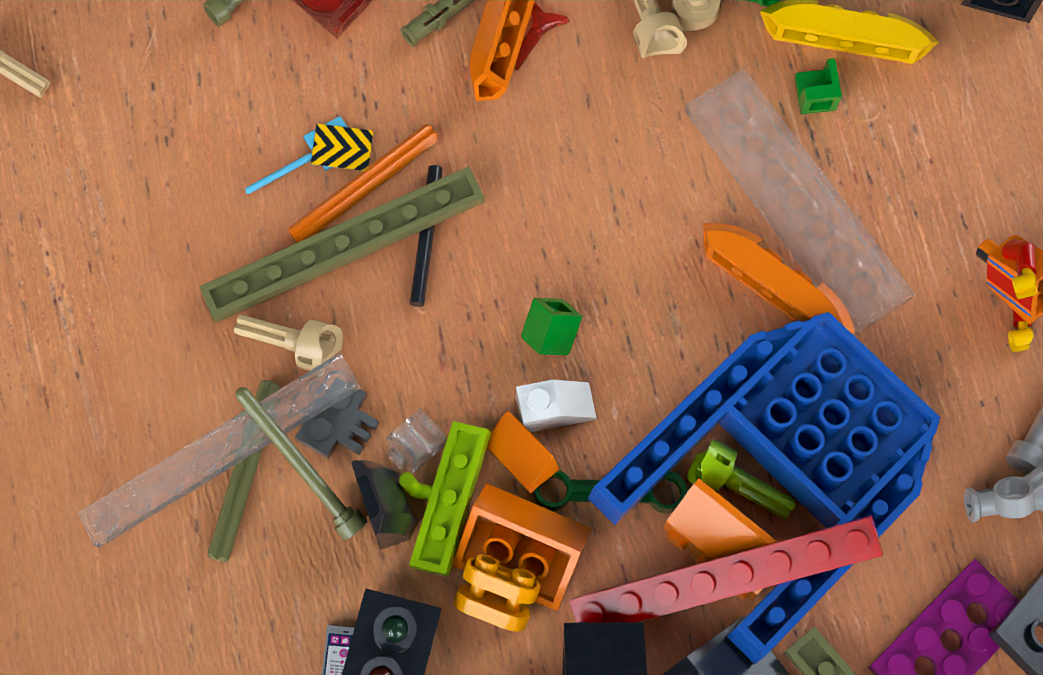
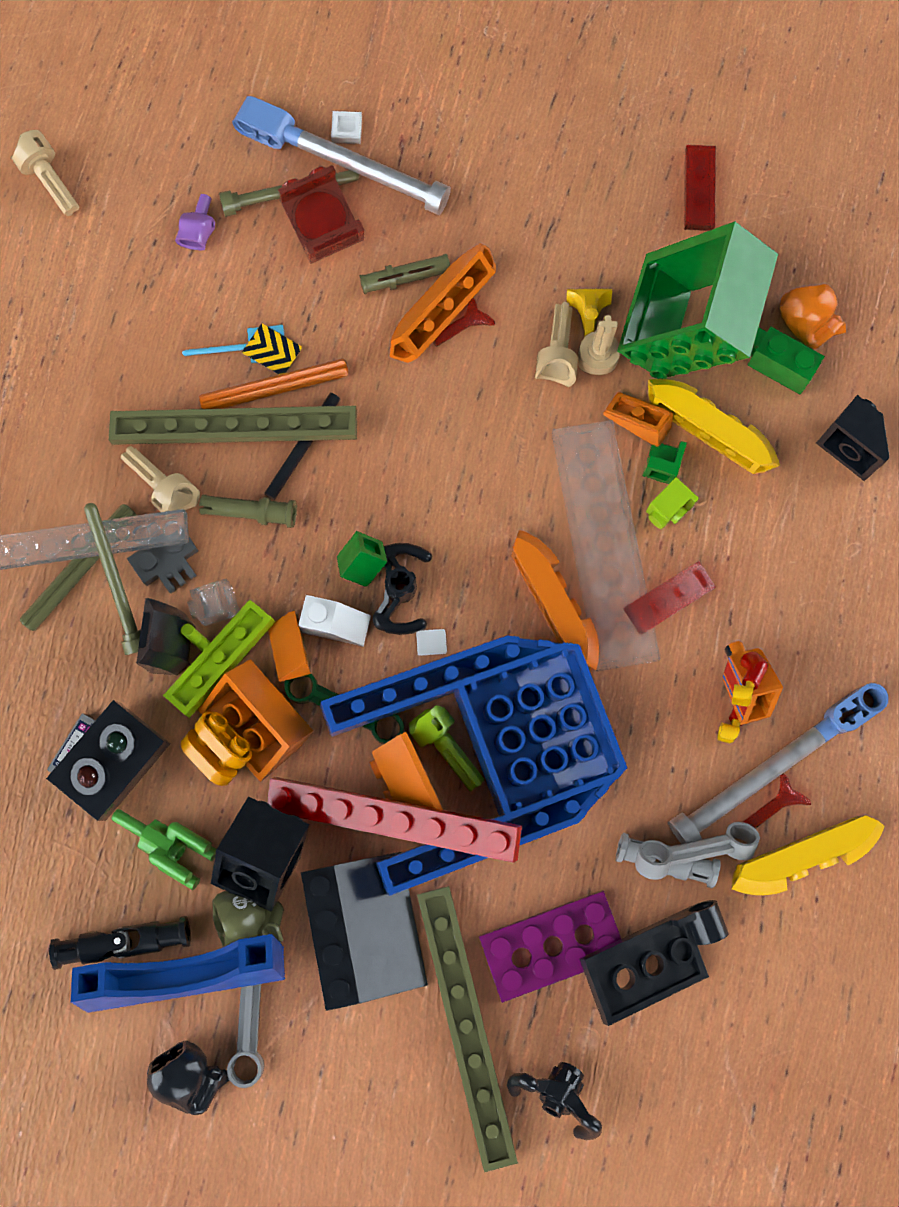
camera: 25 degrees right, 5 degrees up
(193, 49) = (196, 226): none -> medium lavender piece
(420, 321) = (263, 511): none -> olive pin
(611, 325) = (399, 575): none -> black piece
(666, 382) = (431, 642): none -> white sticker
(770, 54) = (640, 418): none -> orange slope
(848, 129) = (671, 504): none -> lime brick
(893, 226) = (669, 598): none -> clear red tile

